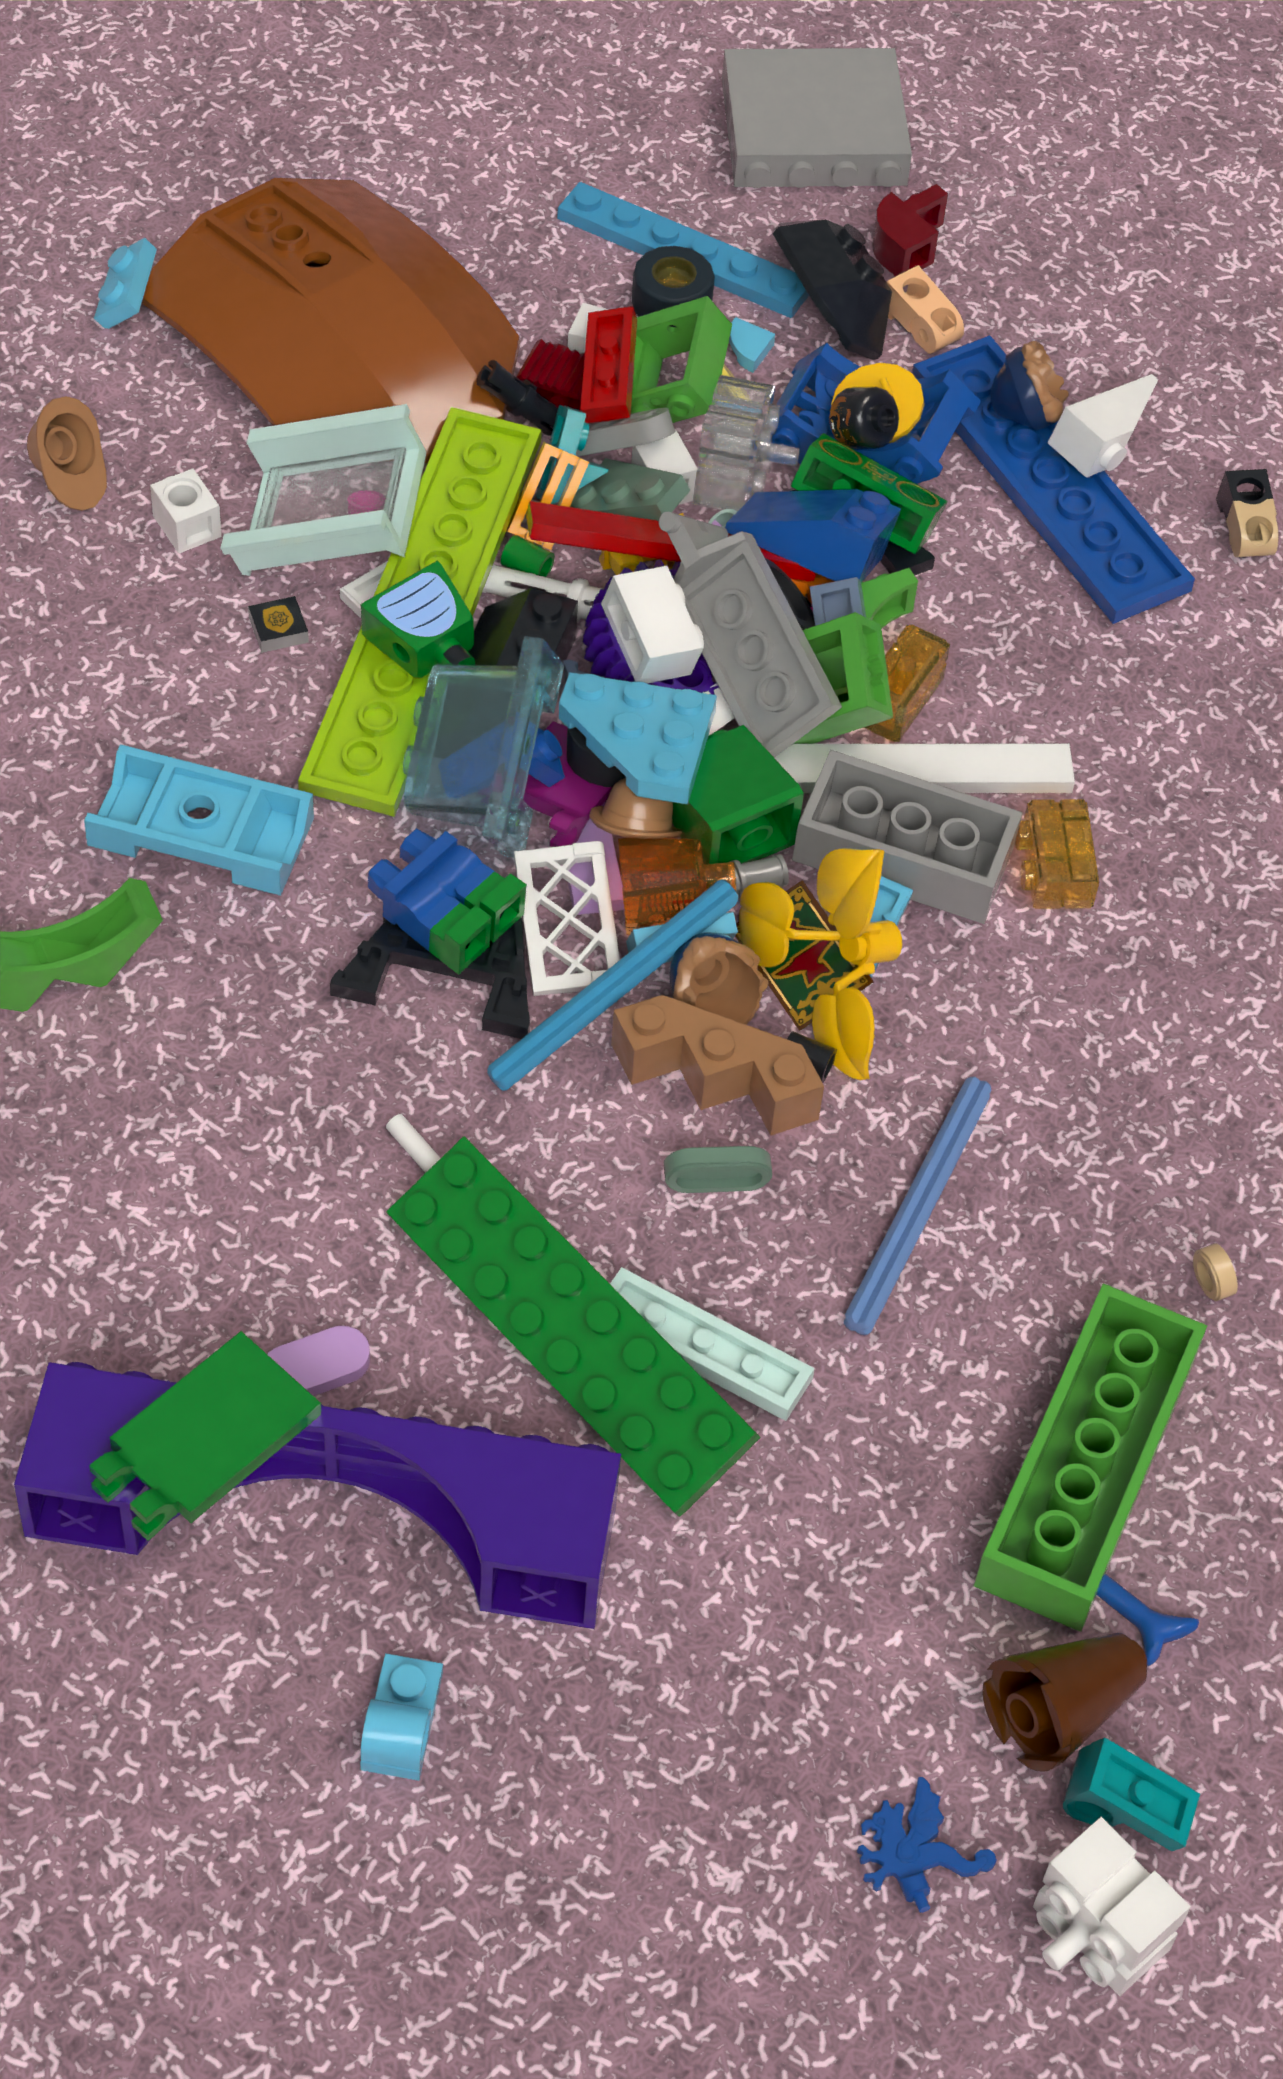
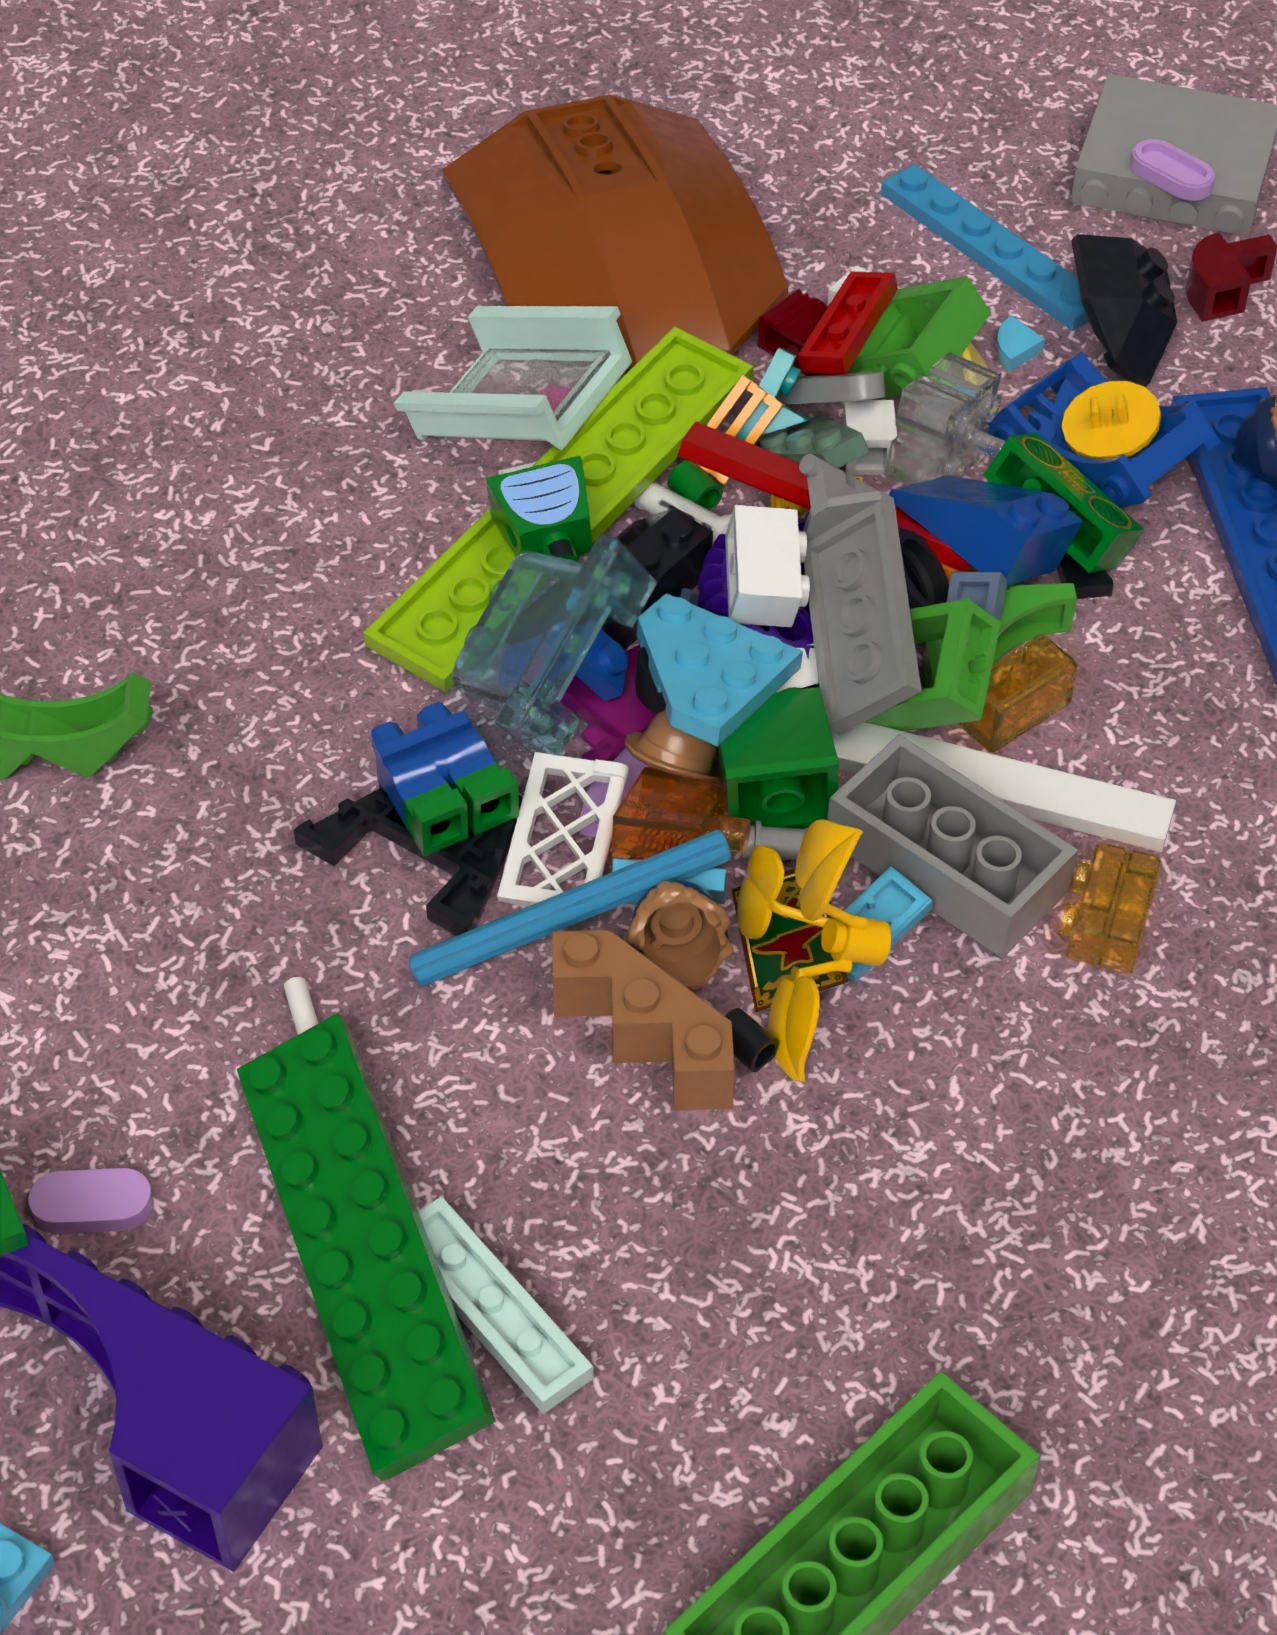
camera: 25 degrees right, 5 degrees down
(69, 453) = (303, 291): medium nougat piece -> none
(125, 283) = (428, 167): medium azure plate -> none
(185, 510) = (386, 365): white brick -> none
(252, 825) = (289, 671): medium azure piece -> none
(278, 624) = (425, 489): tile -> none
(518, 396) = (752, 335): black pin -> none
(670, 278) = (960, 256): black wheel -> none
(717, 1169) = (593, 1126): sand green tile -> none
(827, 138) = (1172, 169): none -> lavender tile
(864, 417) = (1083, 426): black head -> none
(917, 1206) = (791, 1230): medium blue axle -> none
(924, 310) = (1209, 353): light nougat leg -> none
(1215, 1272) = (1091, 1402): tan tile -> none

